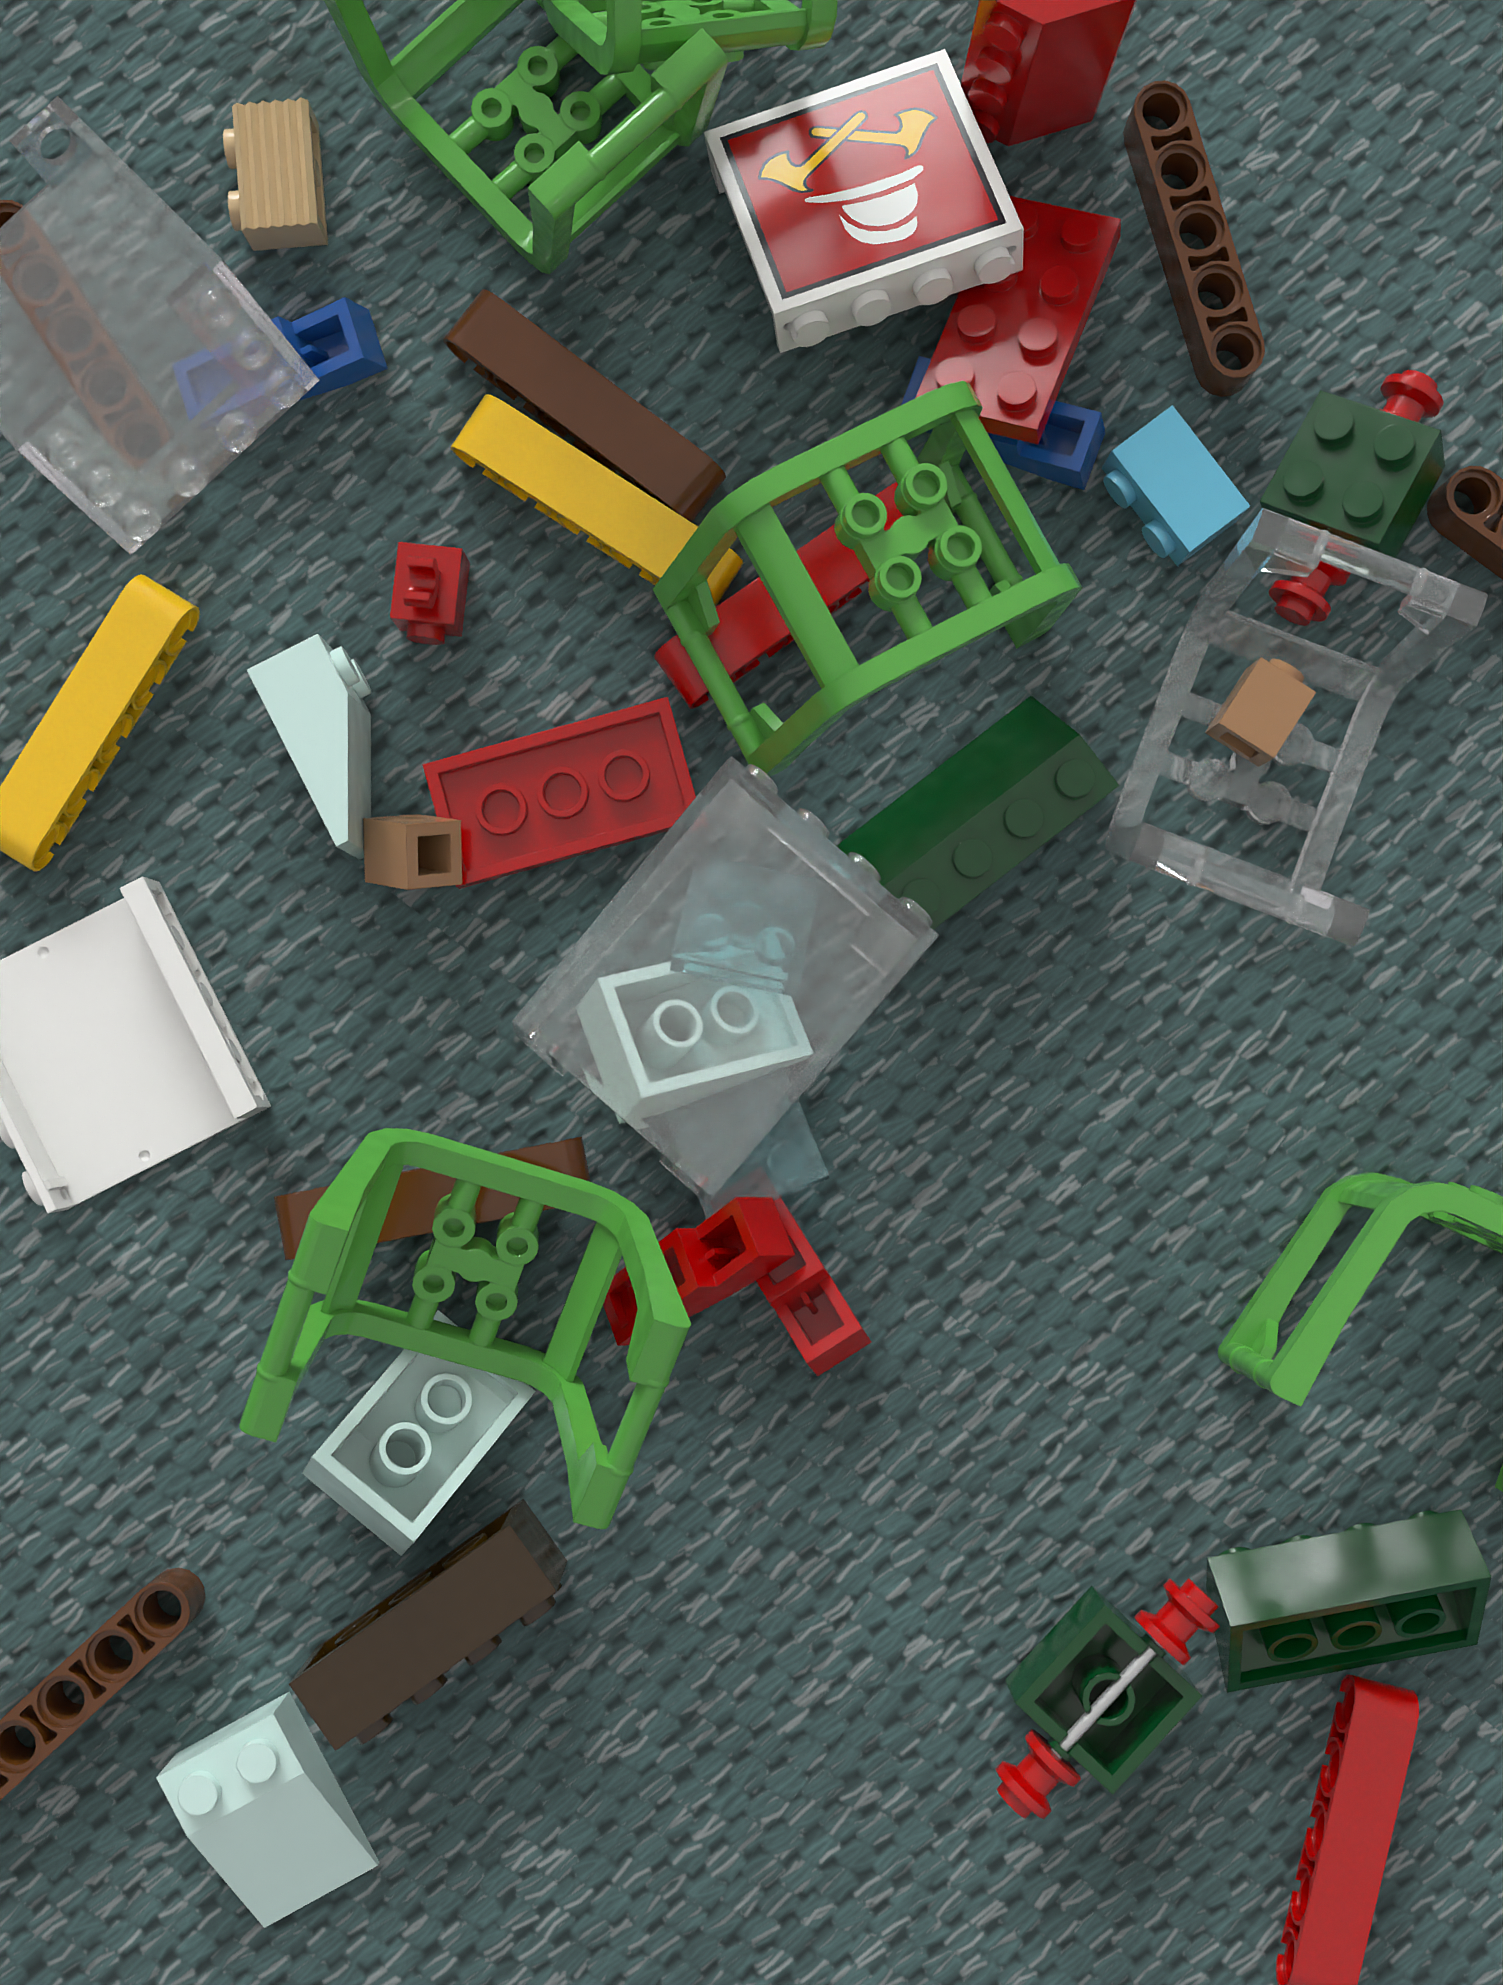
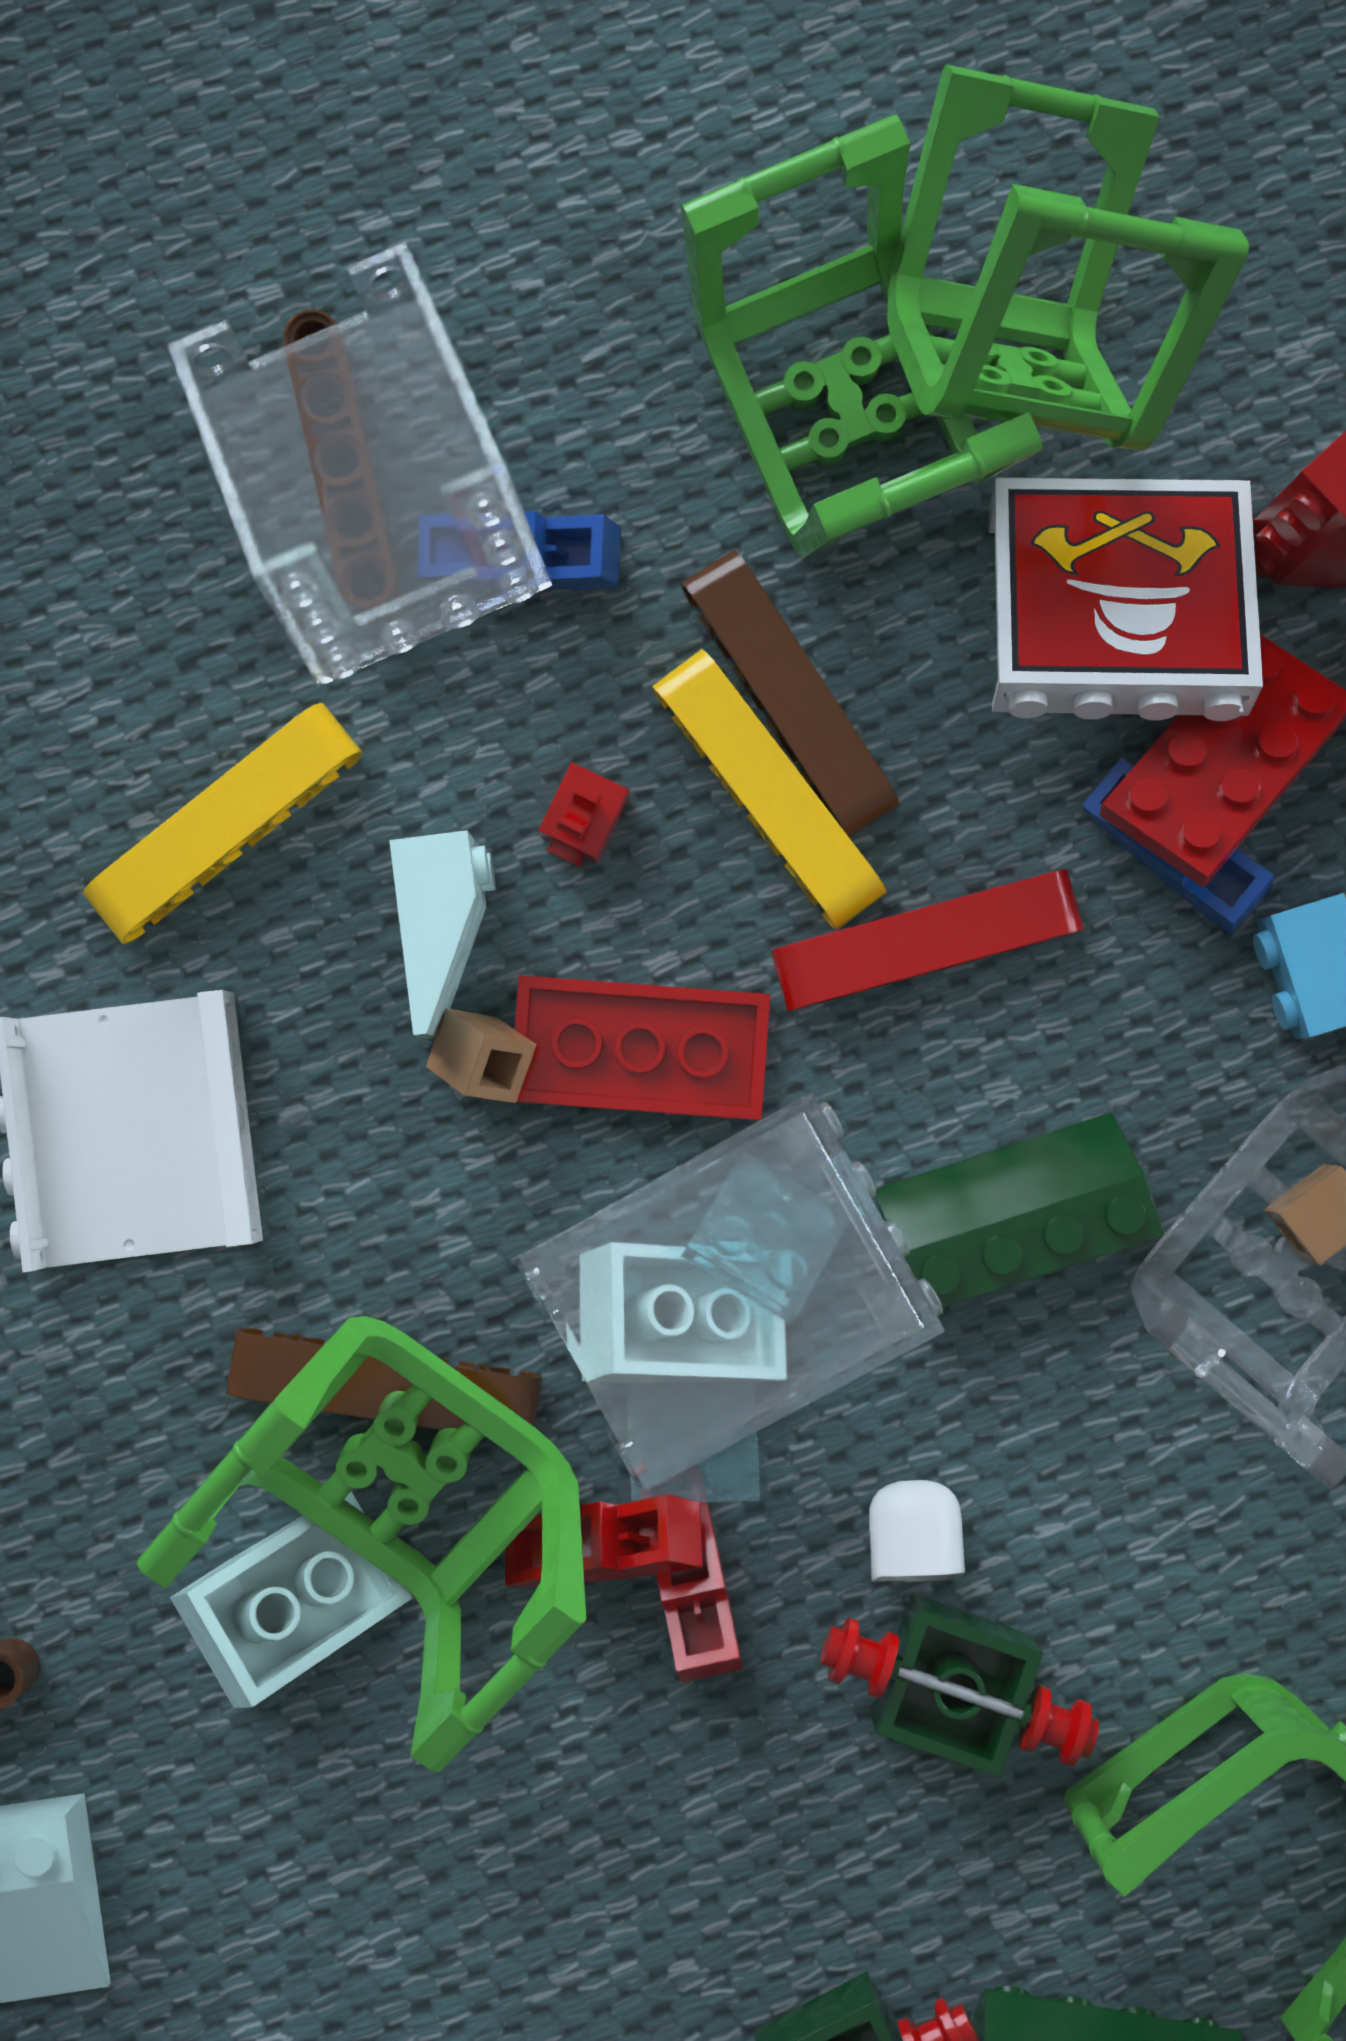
camera: 30 degrees right, 0 degrees up
(277, 175) = (581, 373): tan brick -> none
(430, 1626) = (239, 1787): dark brown brick -> none
(927, 497) = (1021, 966): bright green windscreen -> none
(988, 1155) = (915, 1533): none -> white helmet
(1079, 1282) = (958, 1687): none -> dark green brick

